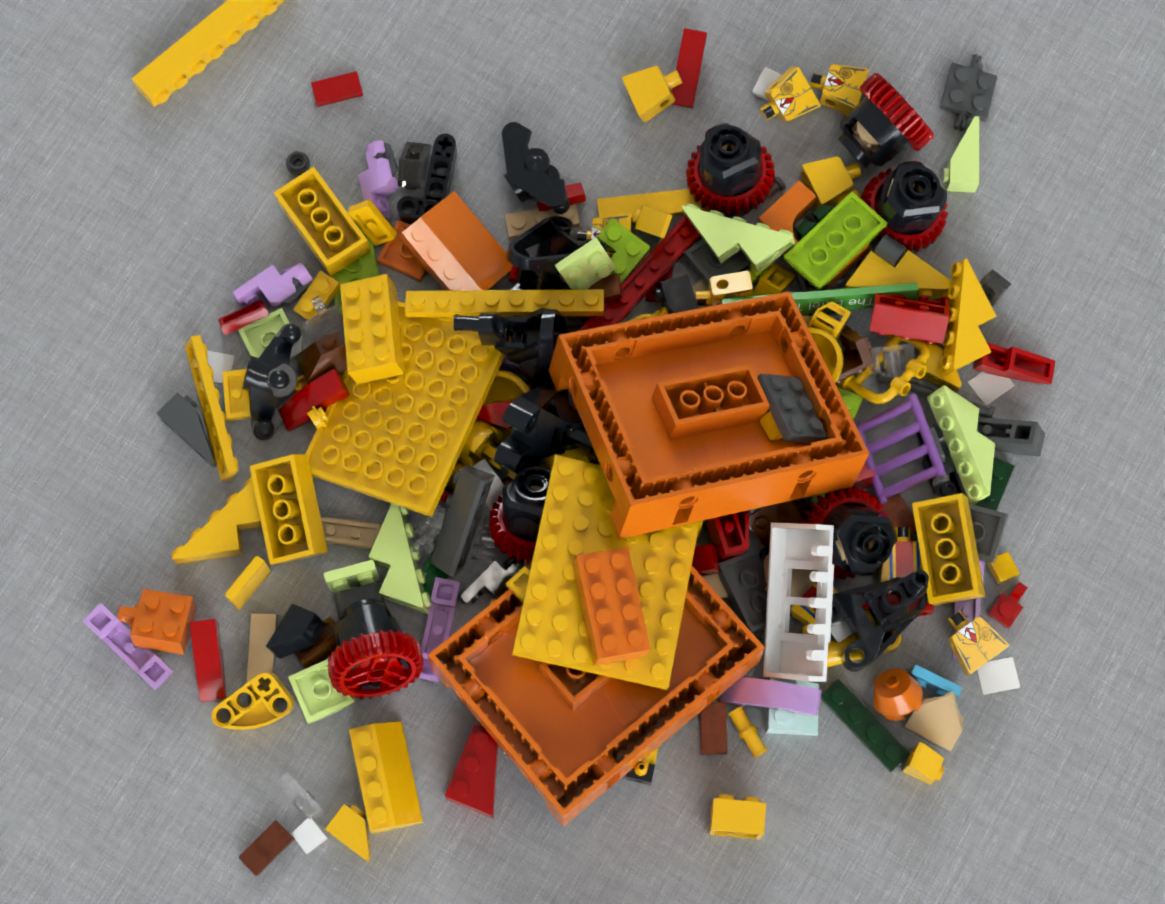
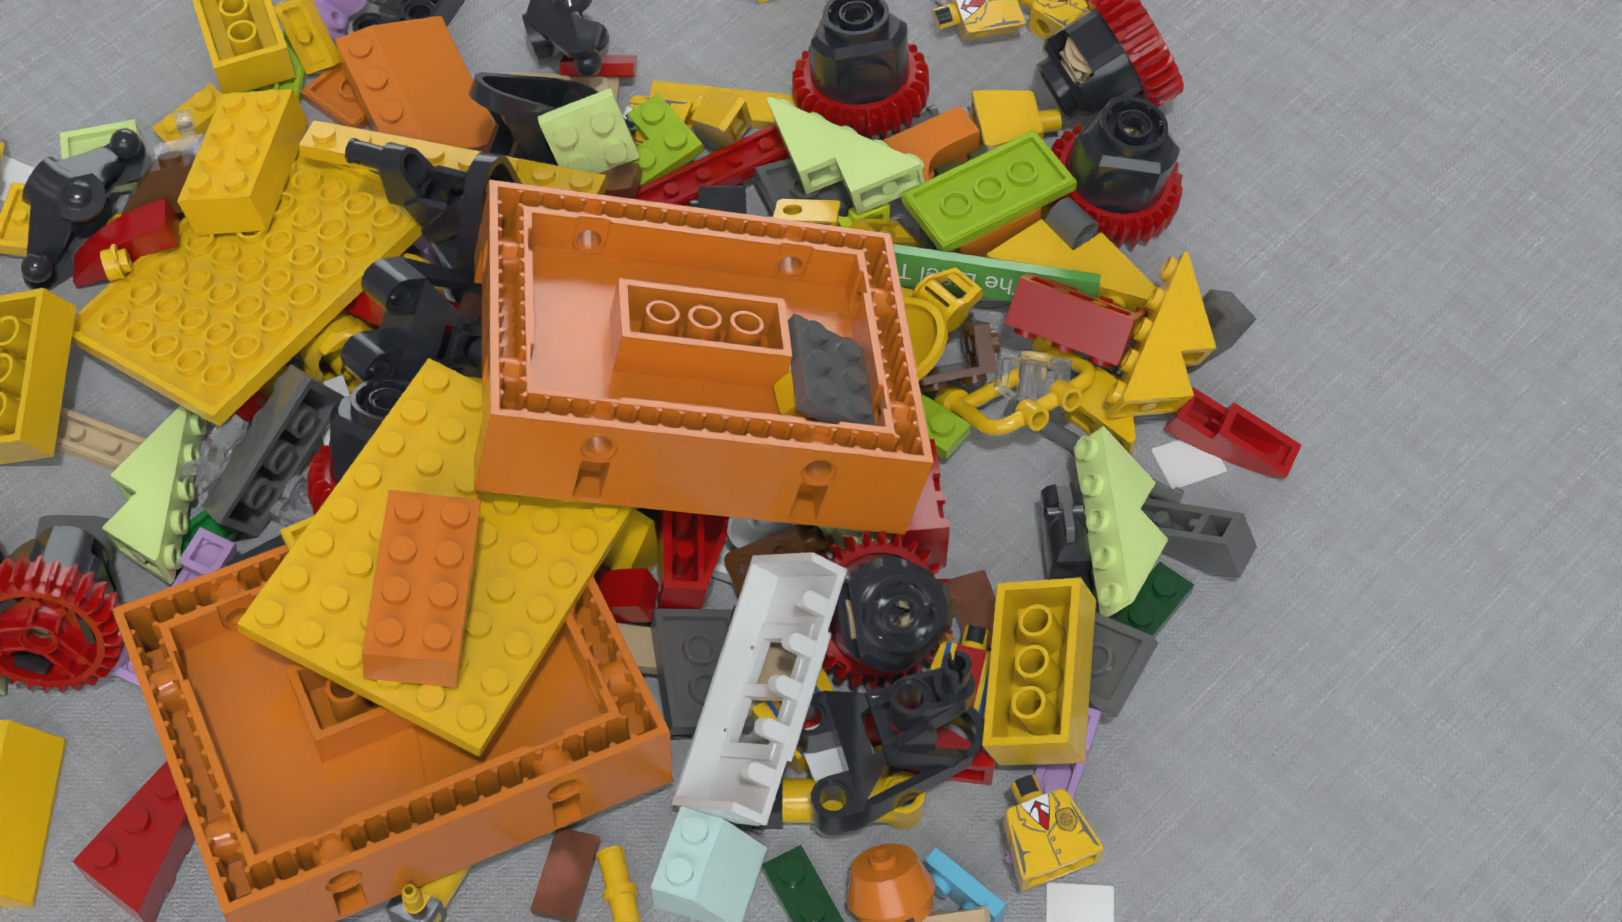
camera: 15 degrees right, 15 degrees down
(243, 317) = (75, 120): red tile -> none
(275, 287) = (134, 90): lavender plate -> none
(351, 576) = (70, 492): yellowish green plate -> none
(773, 695) = (678, 833): lavender slope -> none
(928, 448) = (1050, 511): medium lavender bar -> none
(963, 168) = (1224, 143): yellowish green slope -> none
(968, 92) = (1258, 58): dark grey plate -> none
(1003, 568) = (1133, 737): yellow slope -> none
(1006, 608) = (1125, 803): red plate -> none

